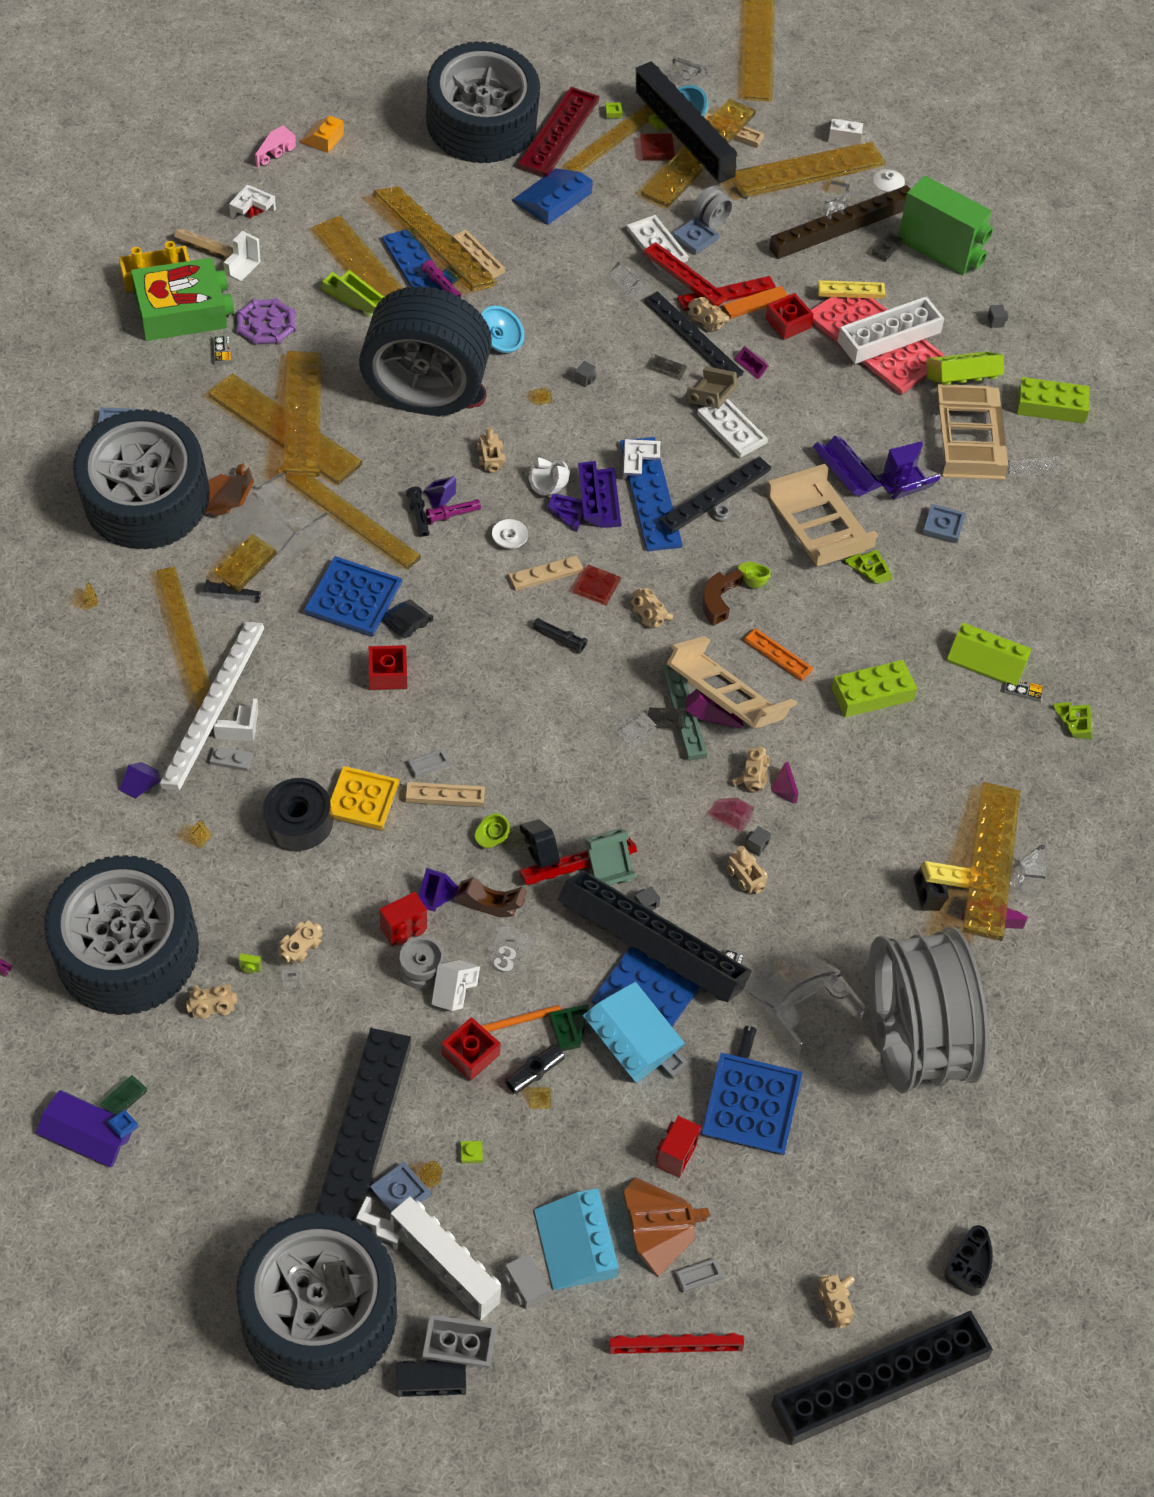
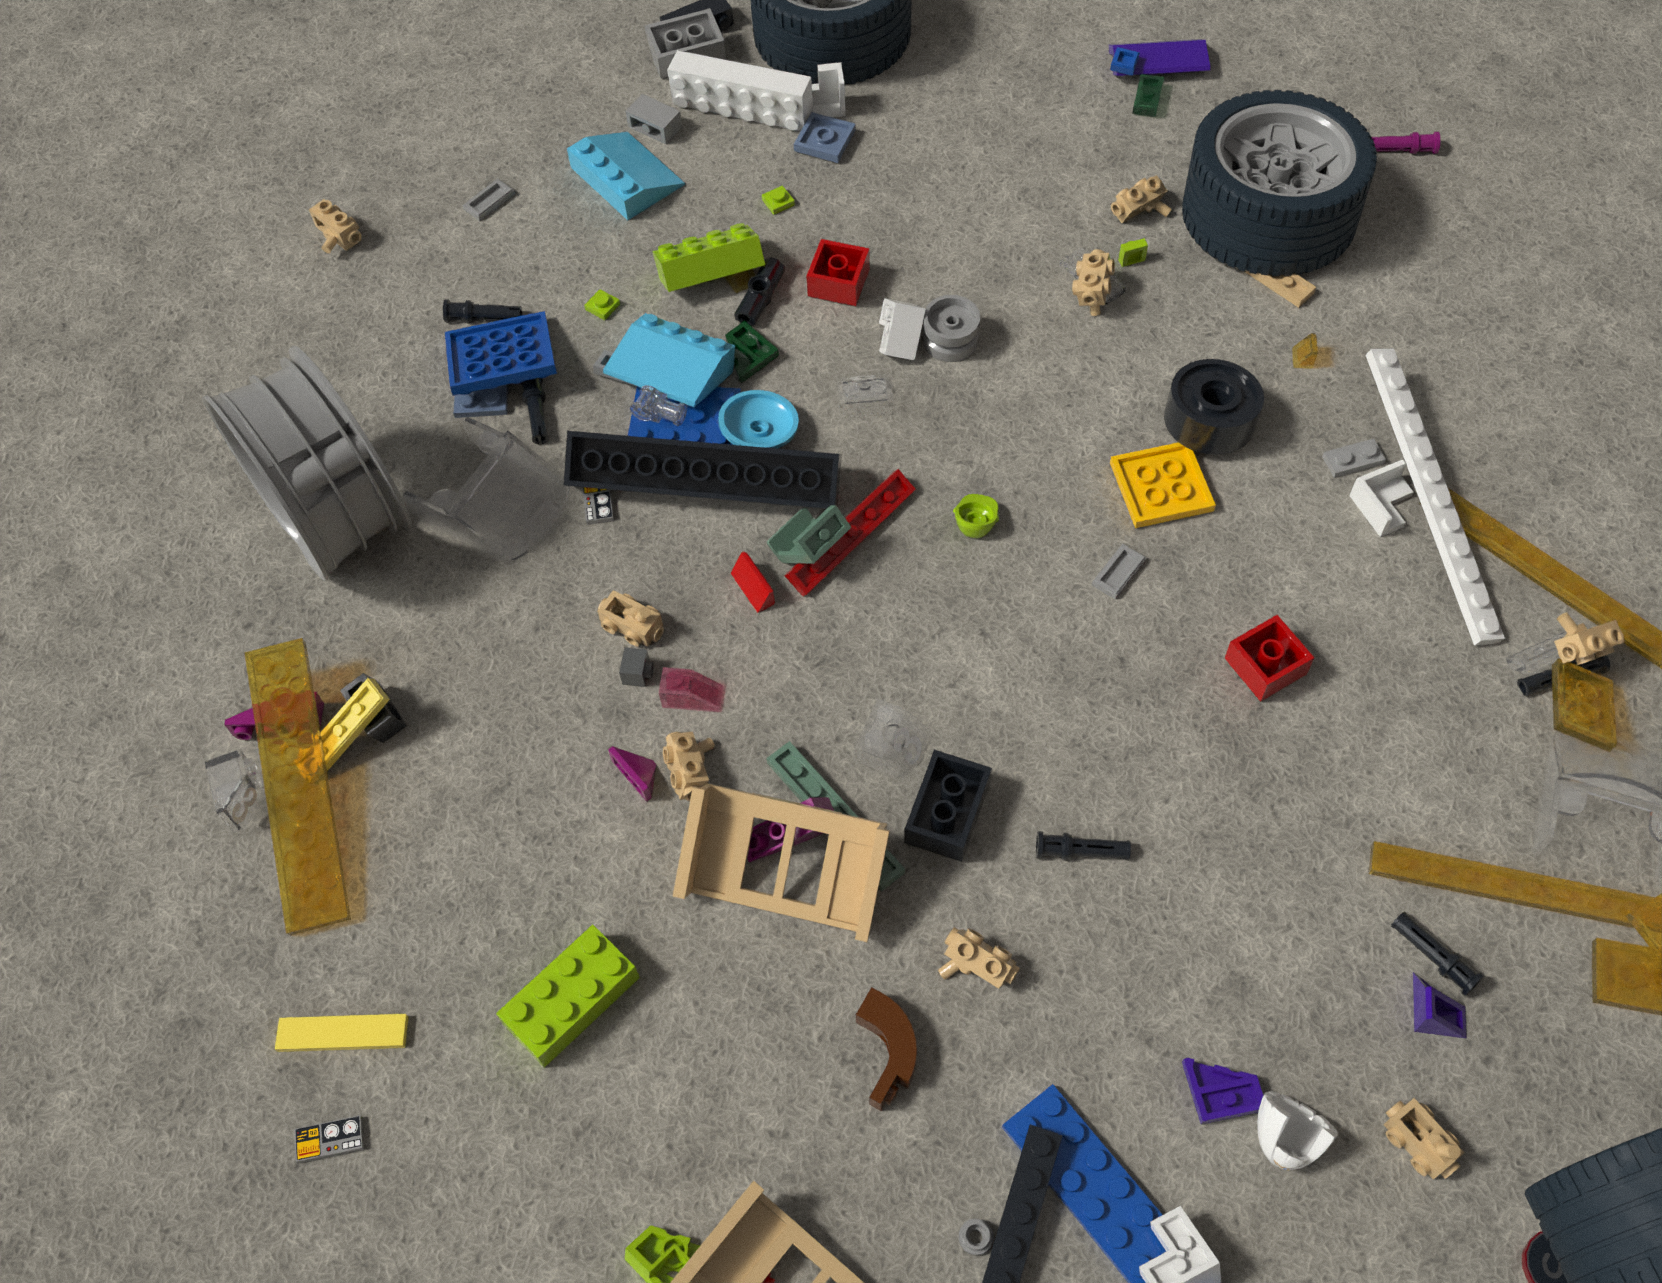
camera: 160 degrees right, 5 degrees up
(139, 779) = (1430, 383): dark purple slope -> none
(215, 579) = (1582, 643): none -> tan brick
(353, 596) = (1405, 755): blue plate -> none
(364, 1124) = (898, 166): black brick -> none
(403, 919) = (1003, 355): red brick -> none
(407, 618) = (1307, 759): black slope -> none
(431, 1173) = (805, 159): clear yellow plate -> none
(436, 889) = (994, 421): dark purple slope -> none
(444, 514) = (1398, 974): magenta pin -> none
(445, 794) = (1068, 537): tan plate -> none
(489, 901) = (926, 435): reddish brown arch -> none
(510, 528) = (1280, 972): white dish -> none
(520, 1018) = (808, 339): orange bar -> none
(541, 842) = (909, 519): black beam -> none
(545, 573) = (1173, 951): tan plate -> none
(560, 1104) = (708, 257): none -> lime brick
(592, 947) = (758, 419): none -> medium azure dish
(597, 585) = (1086, 971): clear red plate -> none
(599, 495) = (1194, 1150): dark purple slope -> none
(620, 679) = (947, 805): none -> black brick
(648, 898) = (738, 522): dark grey plate -> none
(654, 1124) = (602, 304): none -> lime plate
(658, 860) = (753, 583): none -> red slope
(660, 1223) = (553, 220): dark orange panel -> none
(661, 998) = (655, 405): none -> clear connector
(667, 1344) = (482, 132): red plate -> none
(668, 717) = (852, 784): clear smoke plate -> none
(677, 1146) = (561, 274): red brick -> none
(754, 574) = (855, 1121): lime hat -> none
(757, 1164) = (469, 311): none -> black pin
(778, 654) = (746, 993): orange tile -> none
(881, 1377) = (262, 184): black brick -> none
(971, 1268) = (201, 319): black beam -> none
(989, 654) = (402, 1167): lime slope -> none
(1003, 732) = (341, 1032): none -> light yellow tile
(1080, 726) = (222, 1109): lime slope -> none

